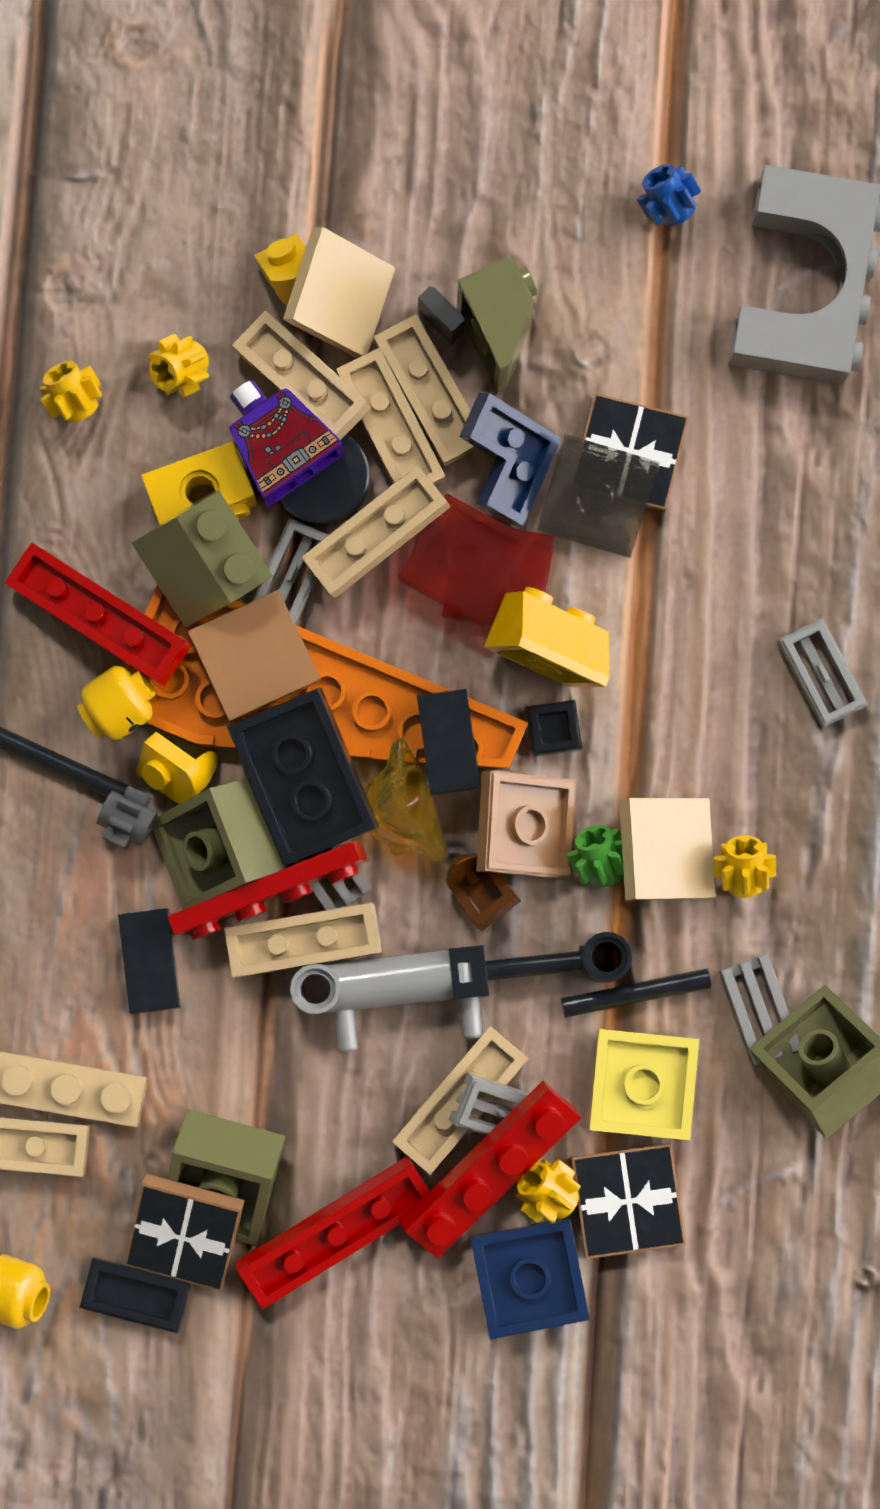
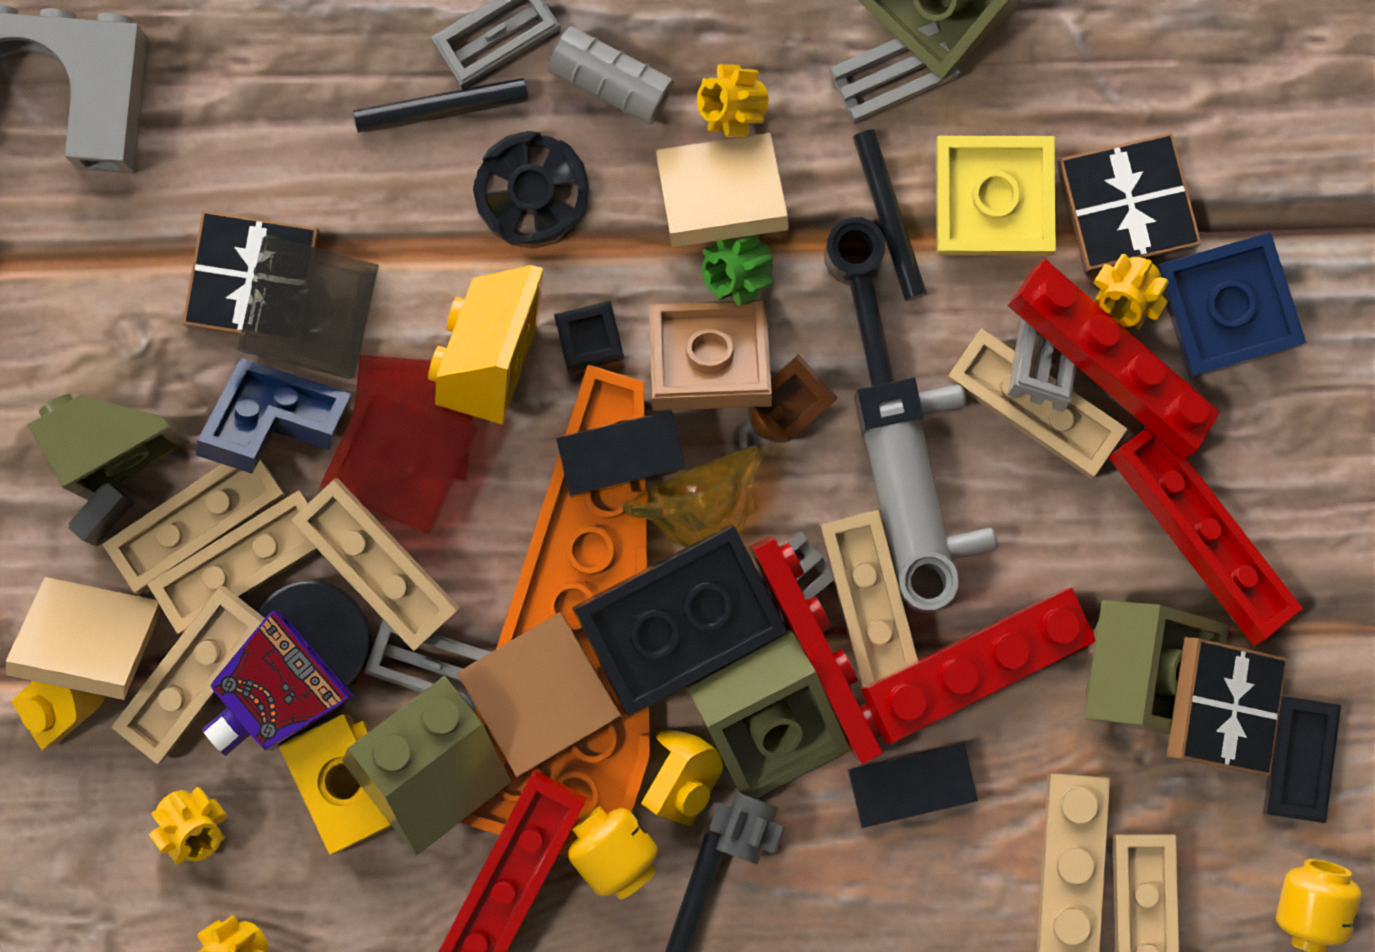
camera: 90 degrees left, 0 degrees up
(241, 1025) = (978, 665): none -> red plate
(684, 691) = (530, 189): none -> black piece
(764, 622) = (440, 105): none -> black bar
(776, 765) = (610, 75): none -> light grey axle

